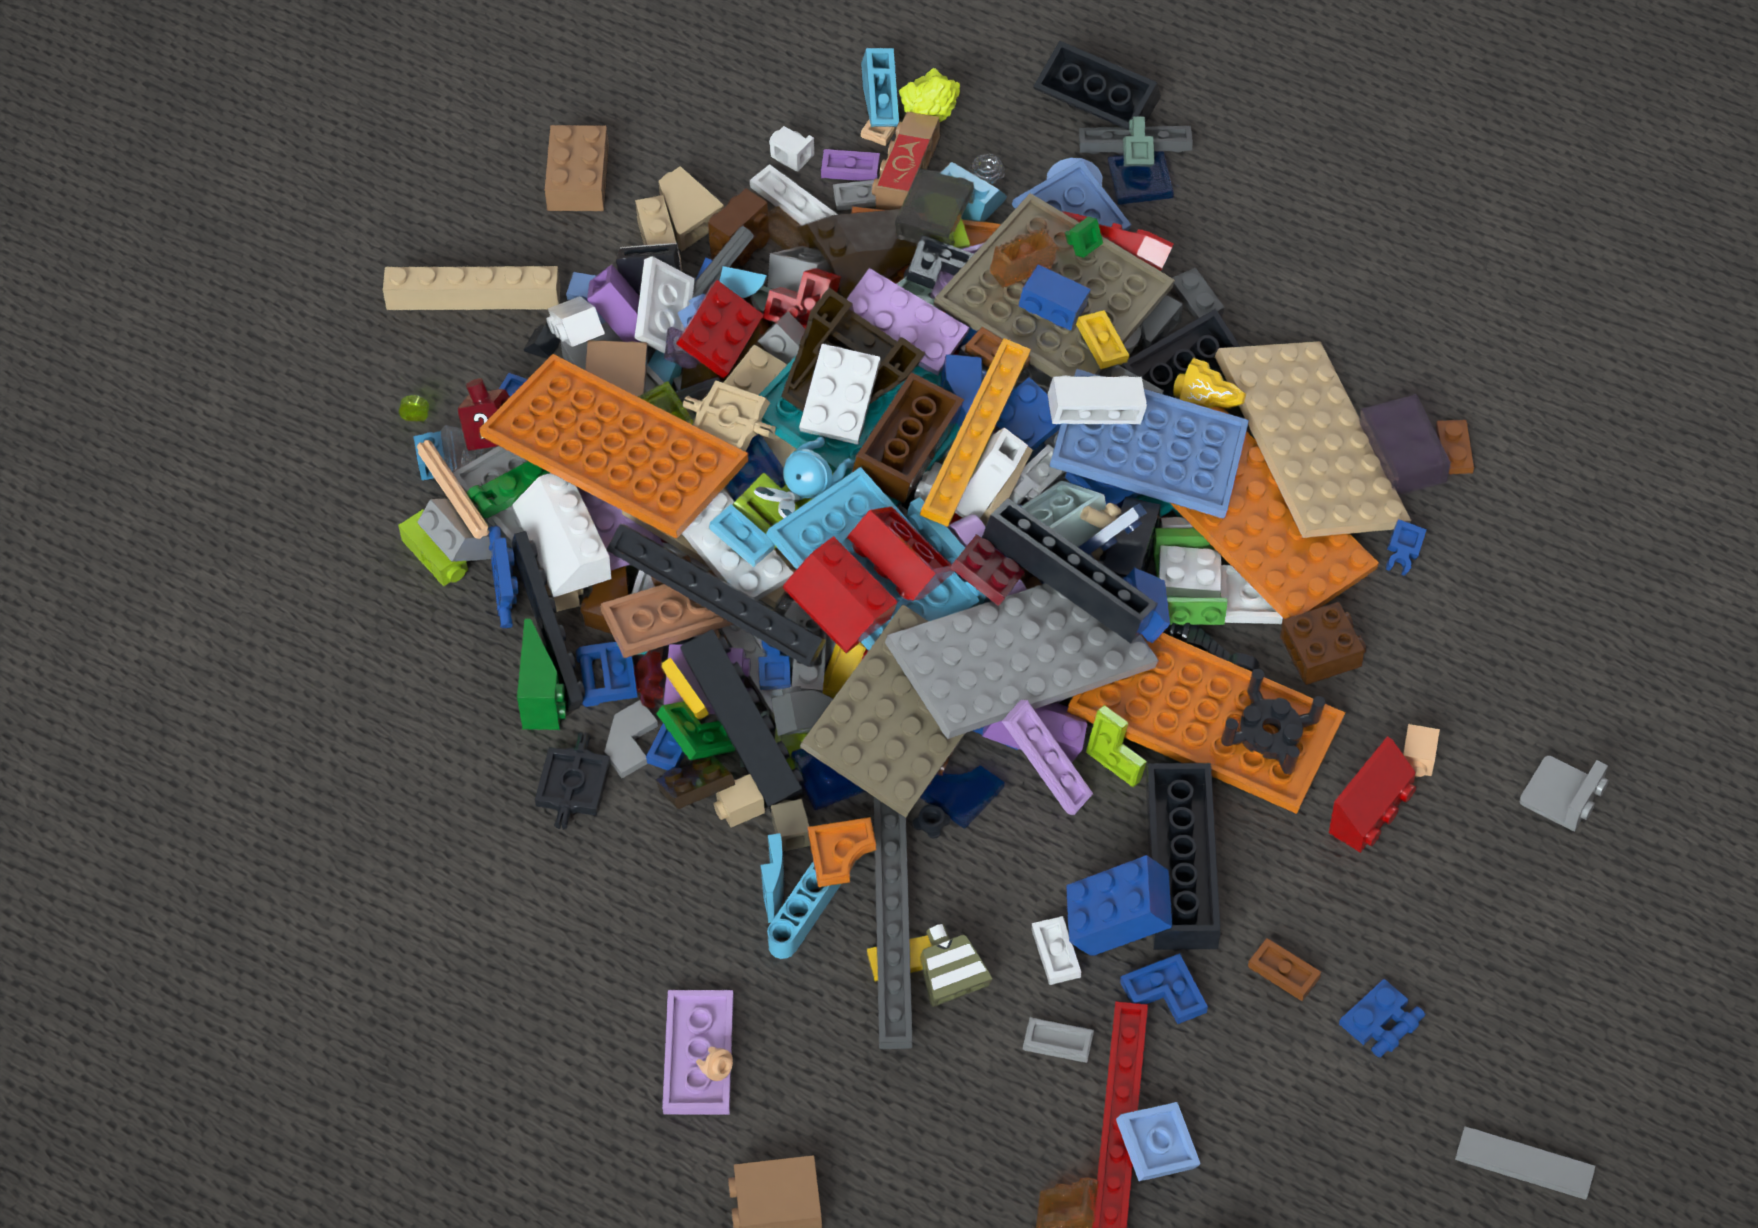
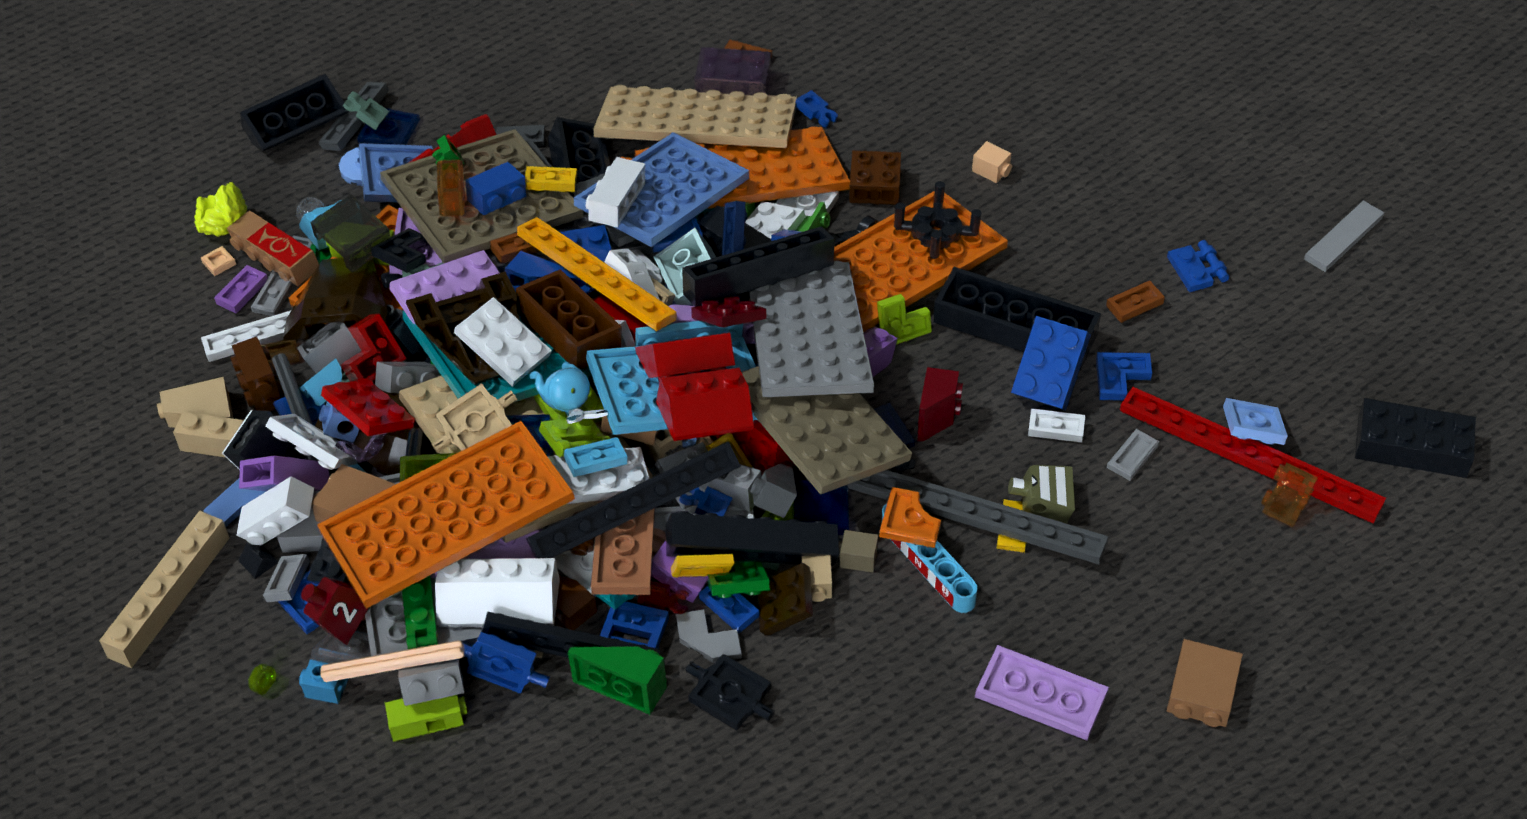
camera: 65 degrees left, 5 degrees down
(517, 372) = (286, 578): none -> light grey tile
(576, 168) = (97, 467): medium nougat brick -> none
(717, 1064) = (1072, 675): light nougat plate -> none
(773, 877) = (912, 572): medium azure slope -> none
(791, 148) = (194, 319): white brick -> none
(880, 86) = (183, 239): medium azure slope -> none
(1011, 820) = (939, 402): none -> dark red slope
(1047, 757) = (897, 353): lavender tile -> none
(1100, 518) = (711, 237): tan arm -> none
(1207, 387) = (624, 144): yellow rock -> none
(1373, 797) = (1020, 199): red slope -> none
(1564, 791) = (1067, 104): light grey bracket -> none

